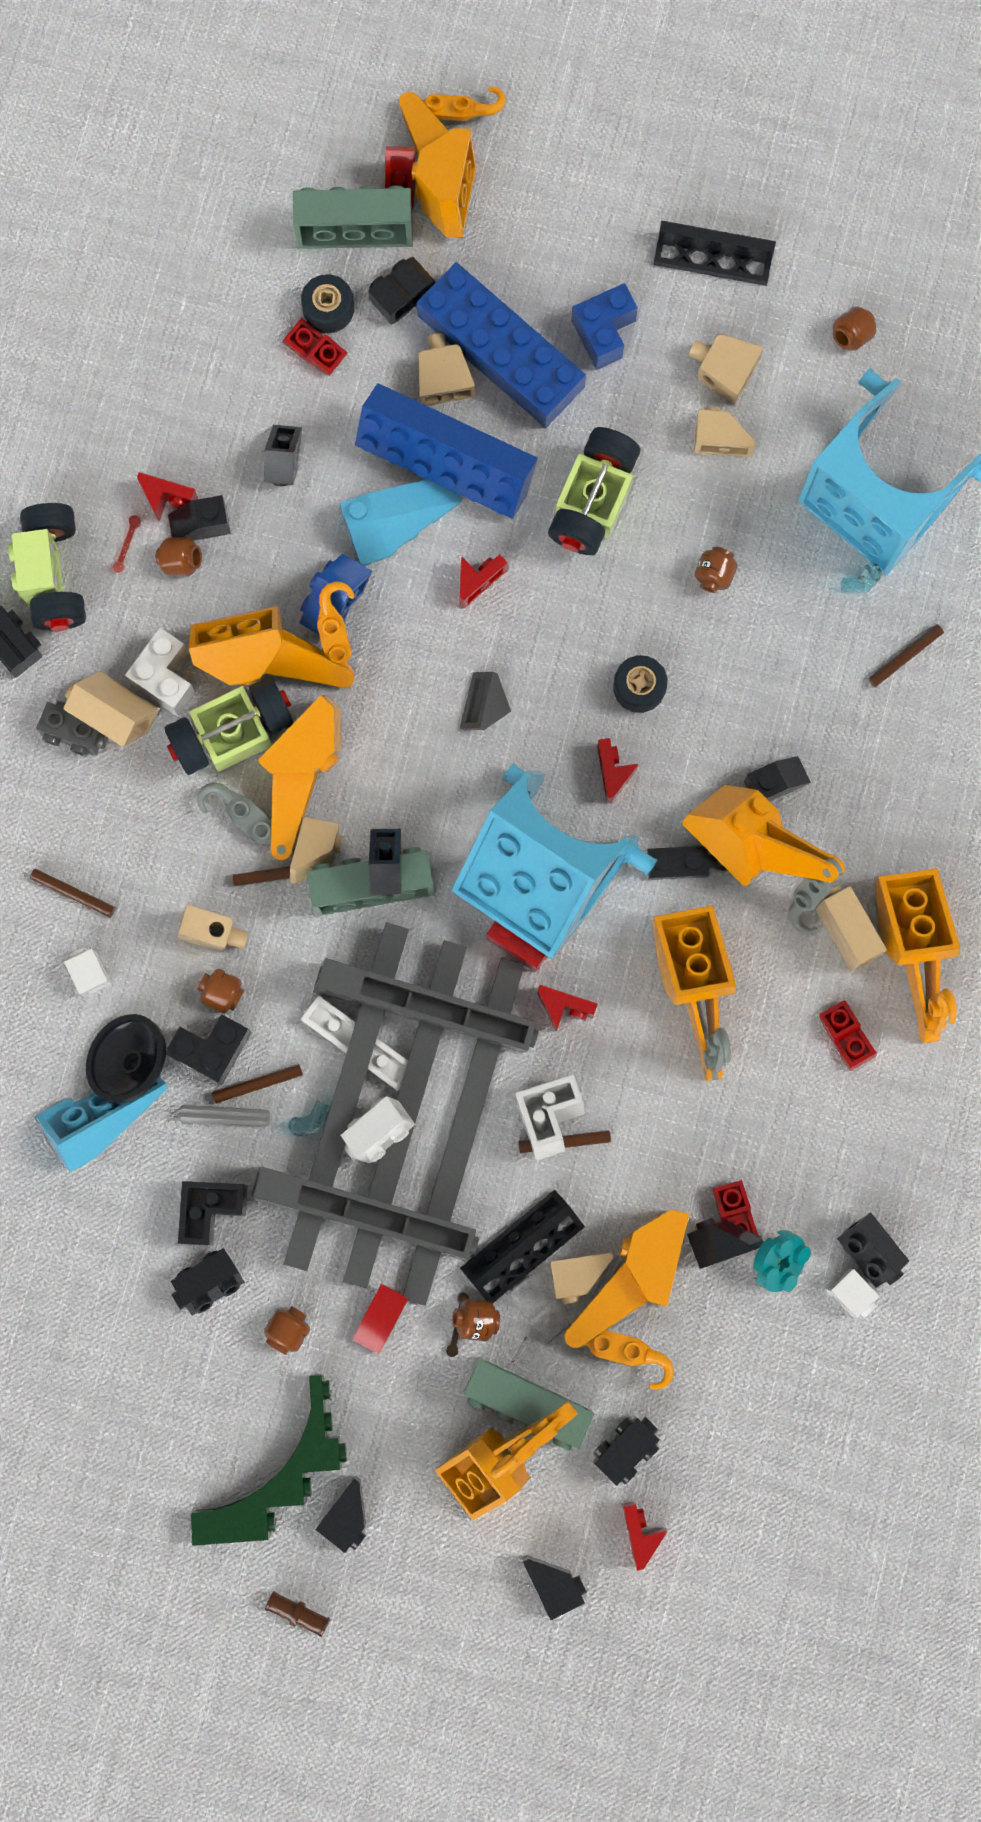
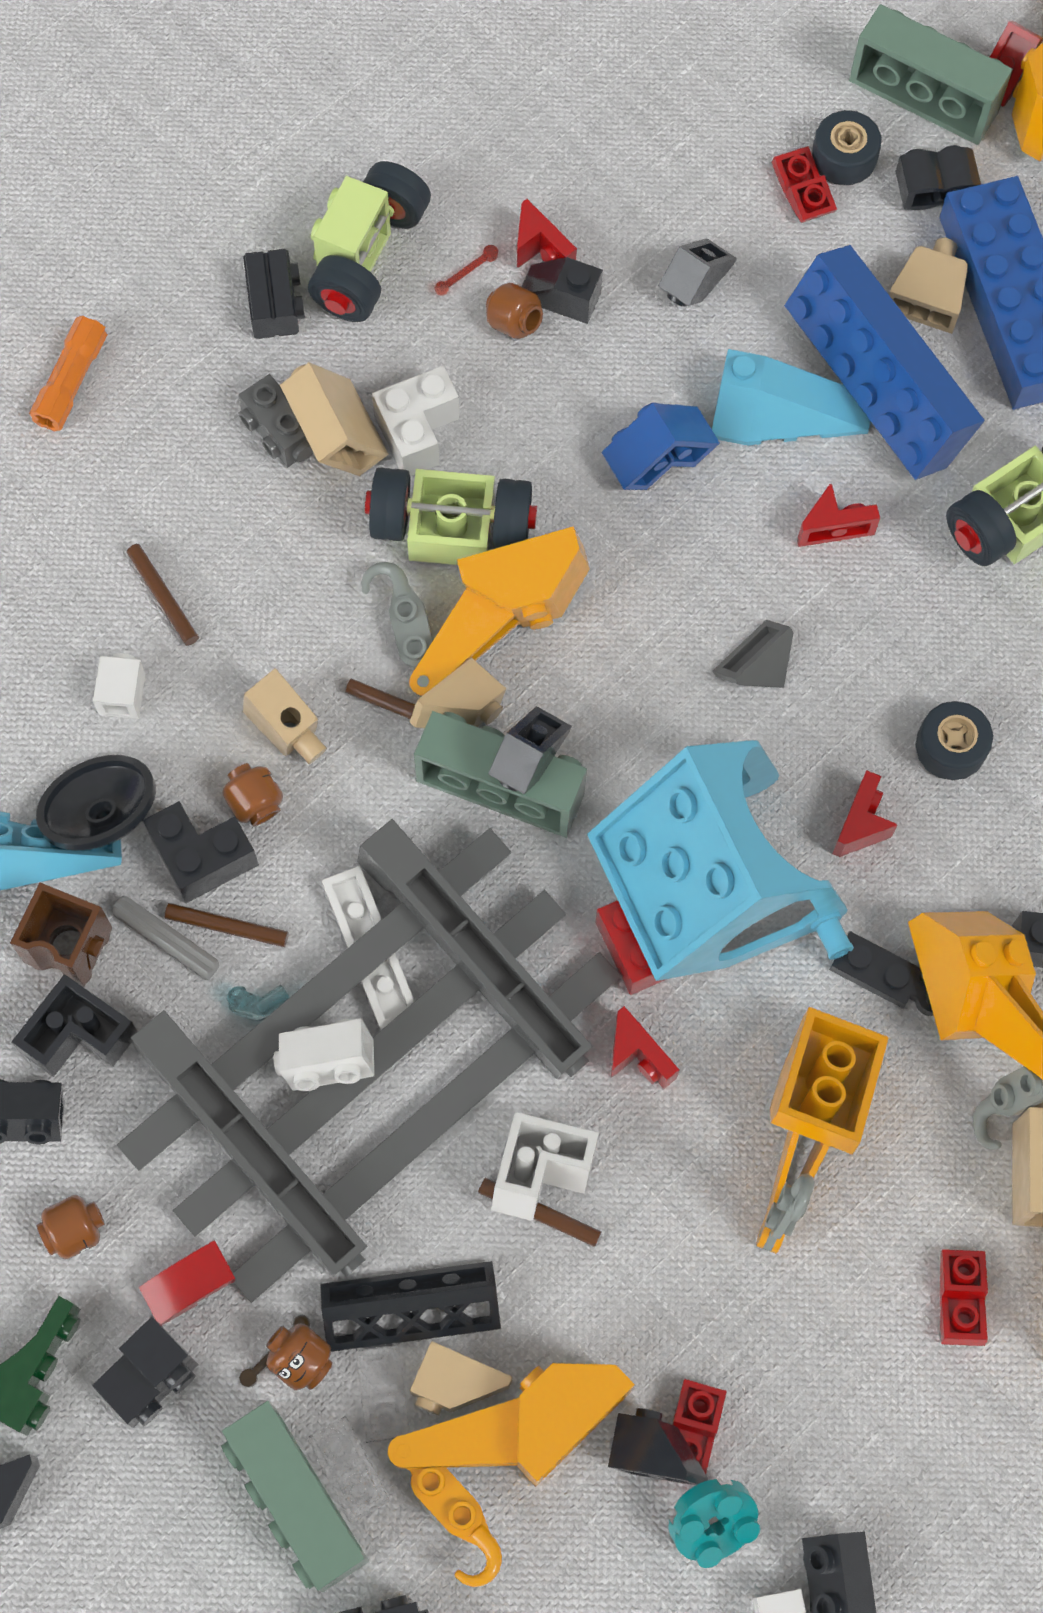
camera: 30 degrees right, 10 degrees down
(144, 1150) = (52, 914): none -> reddish brown piece
(253, 643) = (542, 443): light orange slope -> none
(391, 1388) = (146, 1374): none -> black brick
(489, 1472) = (199, 1545): light orange slope -> none

